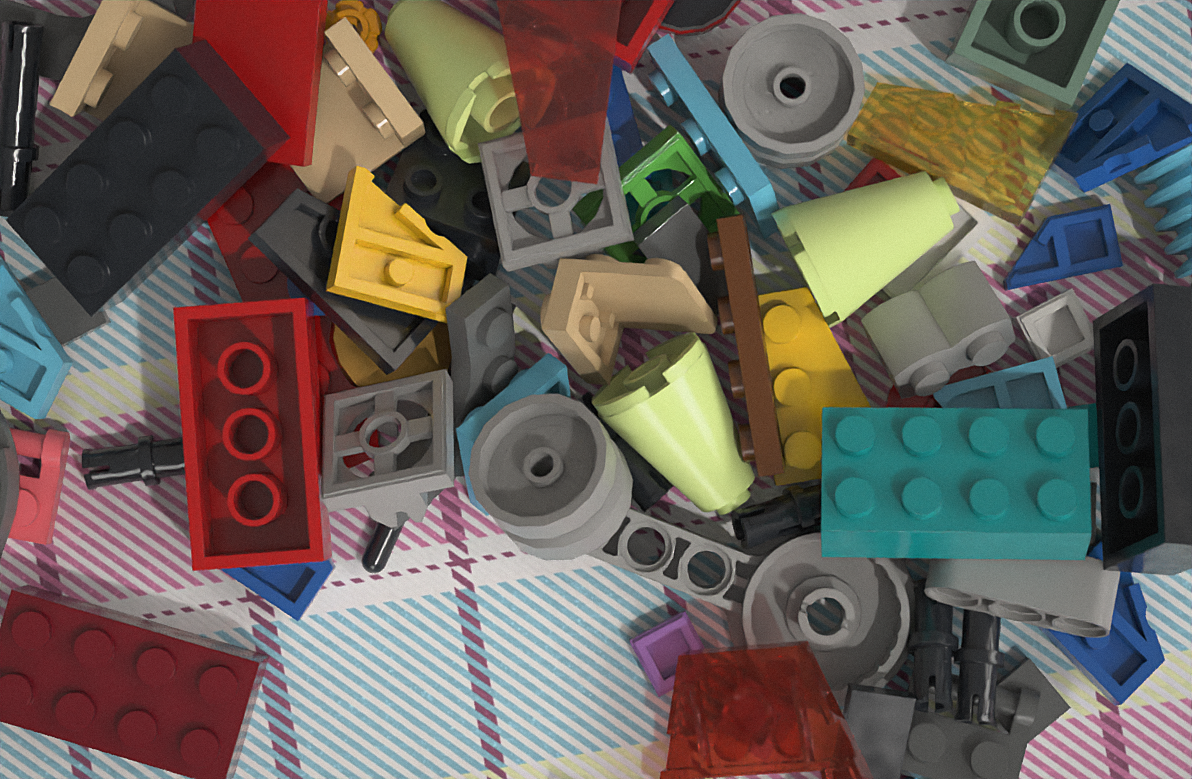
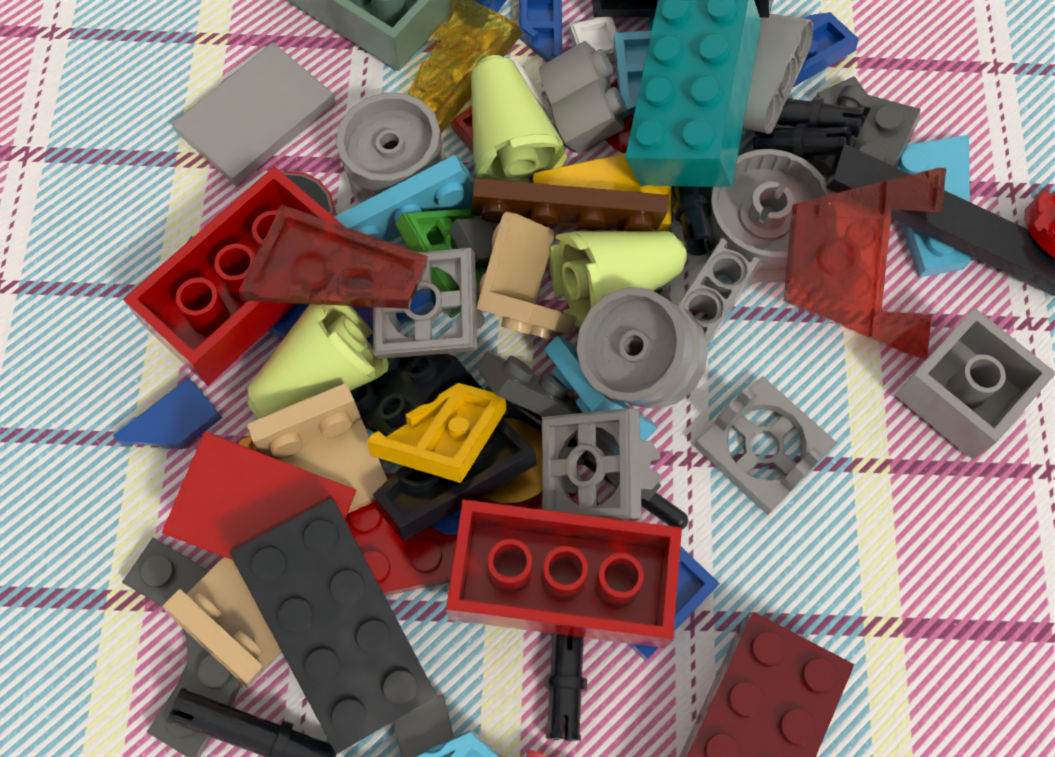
camera: 85 degrees left, 20 degrees down
(499, 716) = (765, 396): none -> light grey piece
(660, 646) = (780, 322): medium lavender tile -> none

